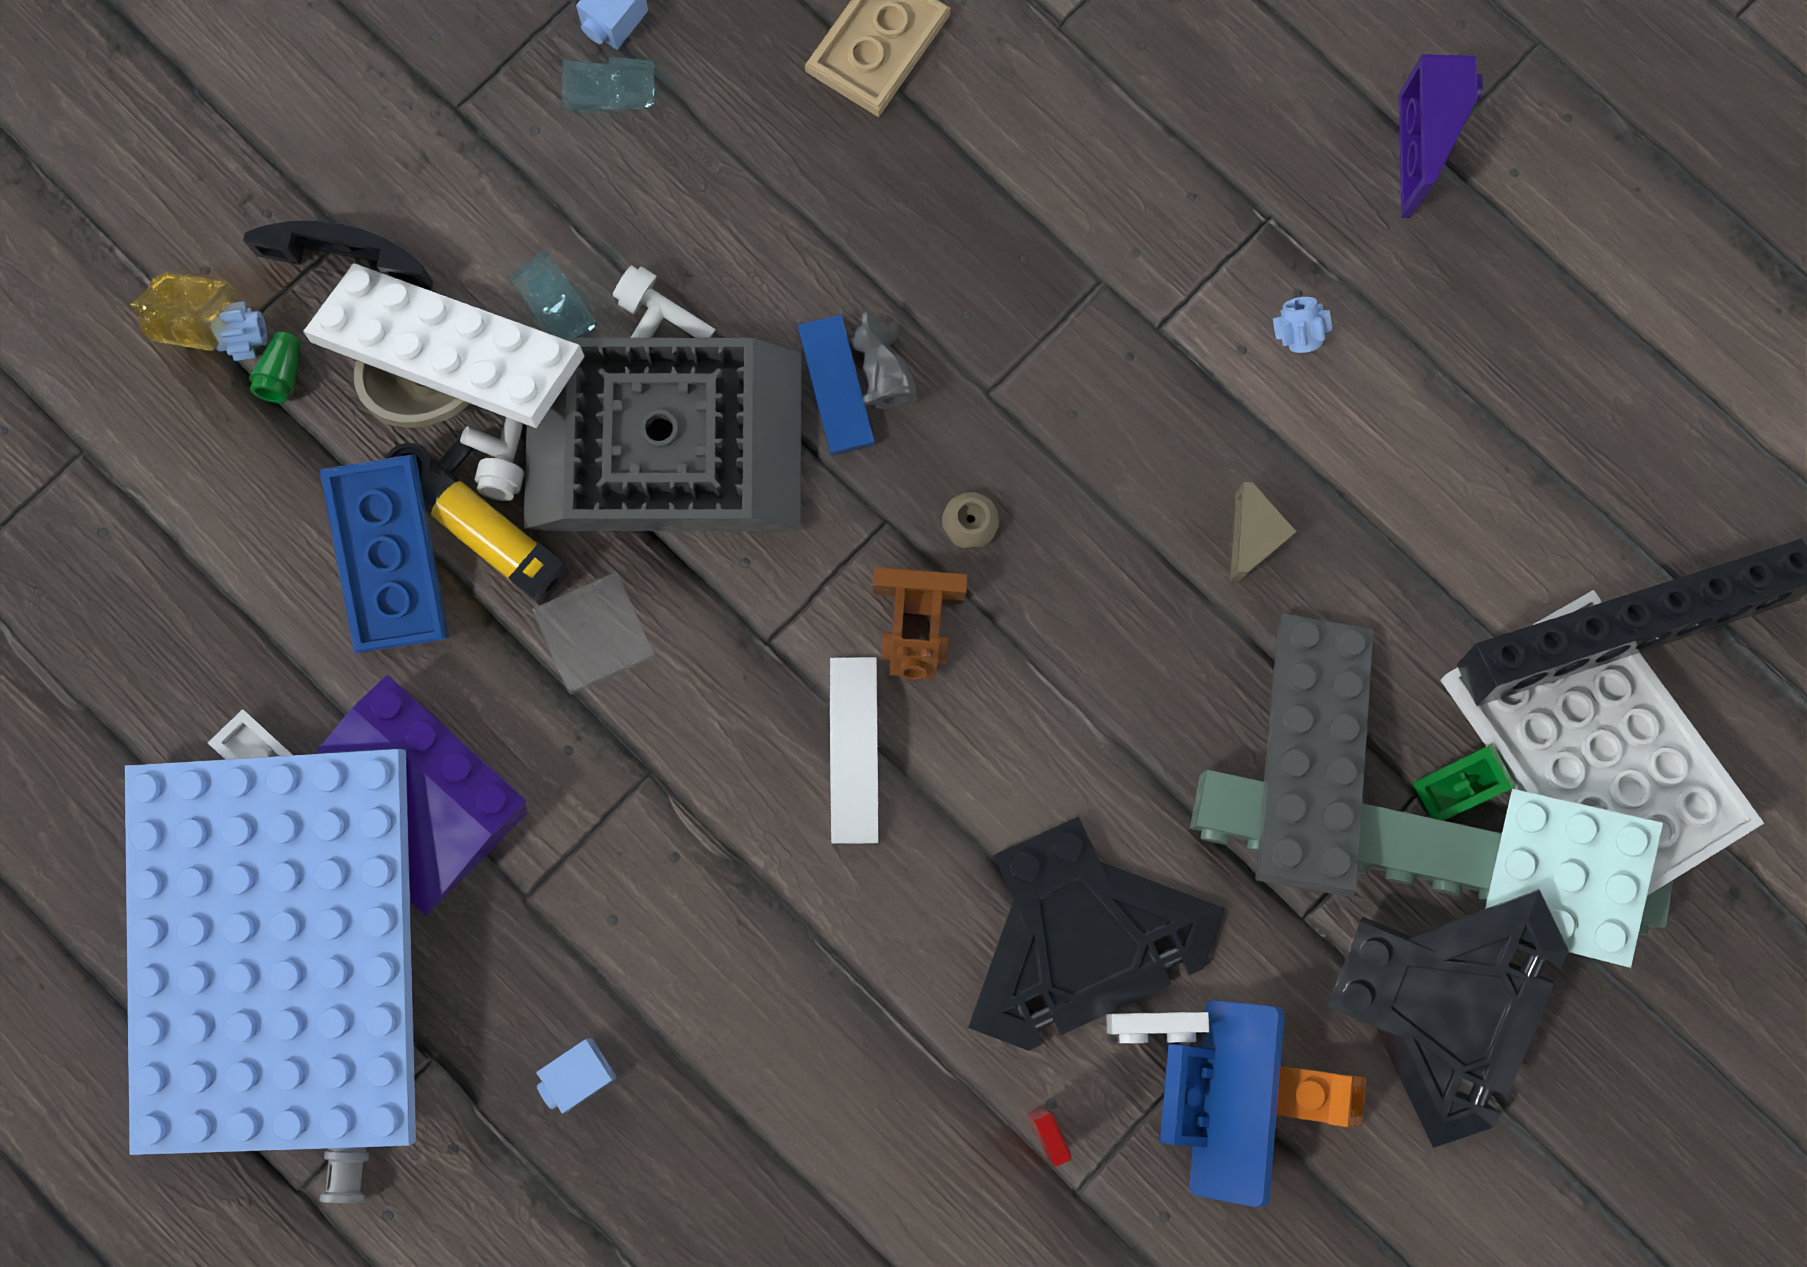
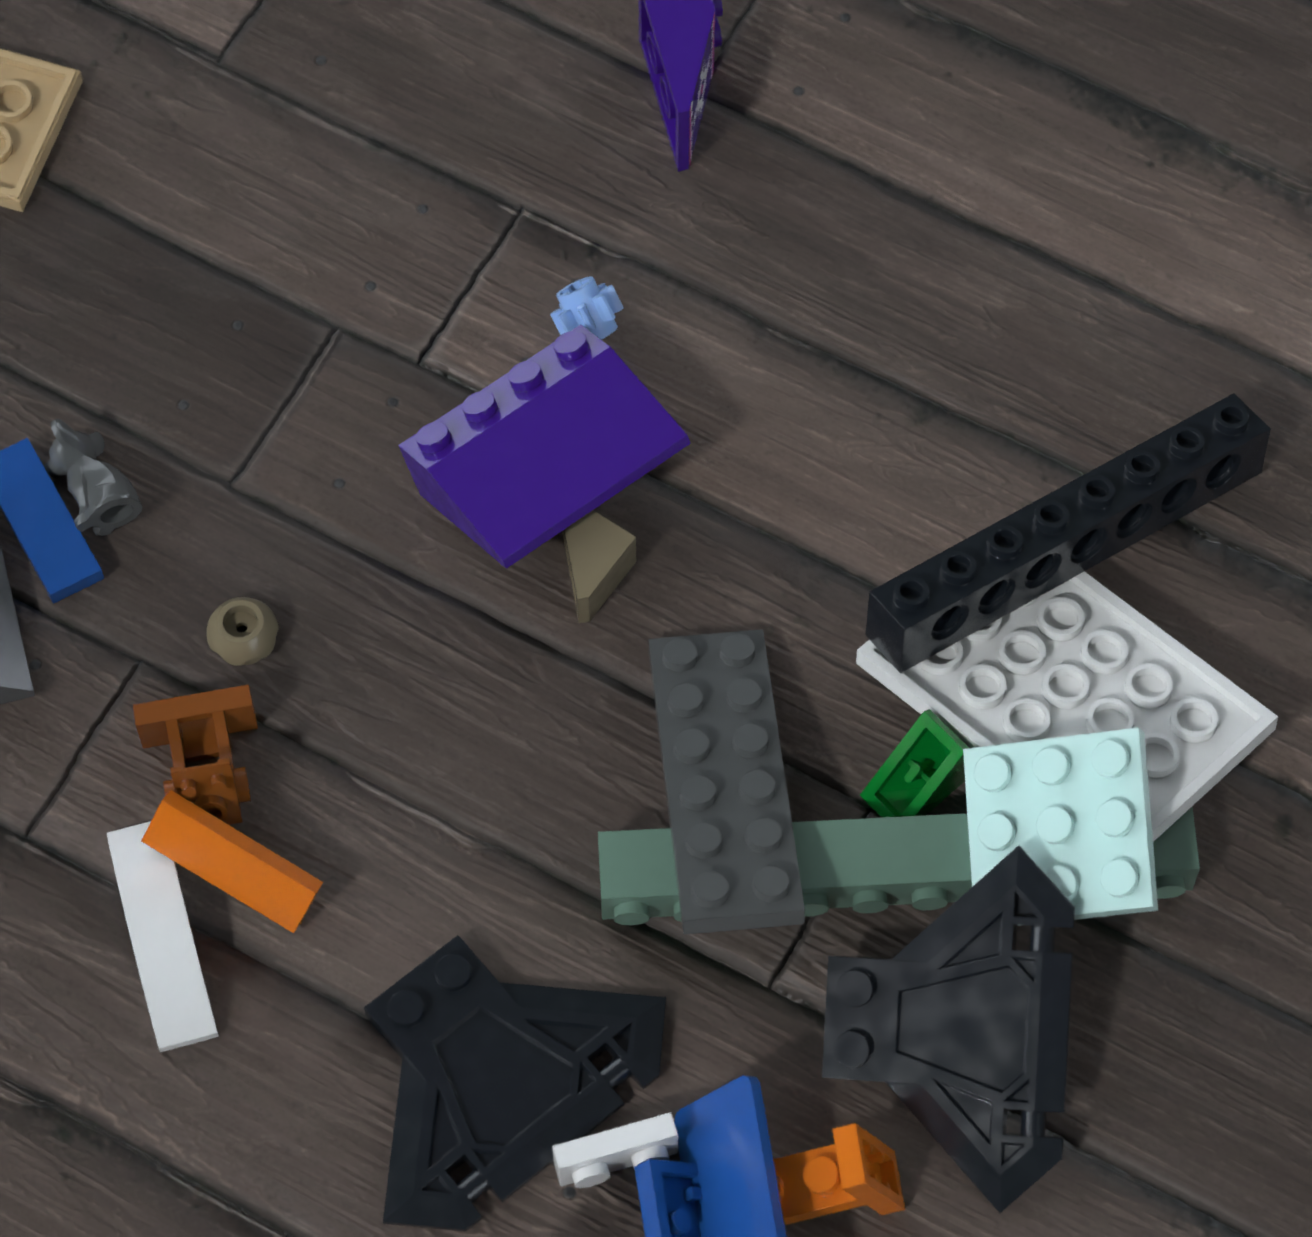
camera: 10 degrees left, 15 degrees down
(921, 714) = (231, 861): none -> orange tile
(1243, 437) = (541, 446): none -> dark purple slope

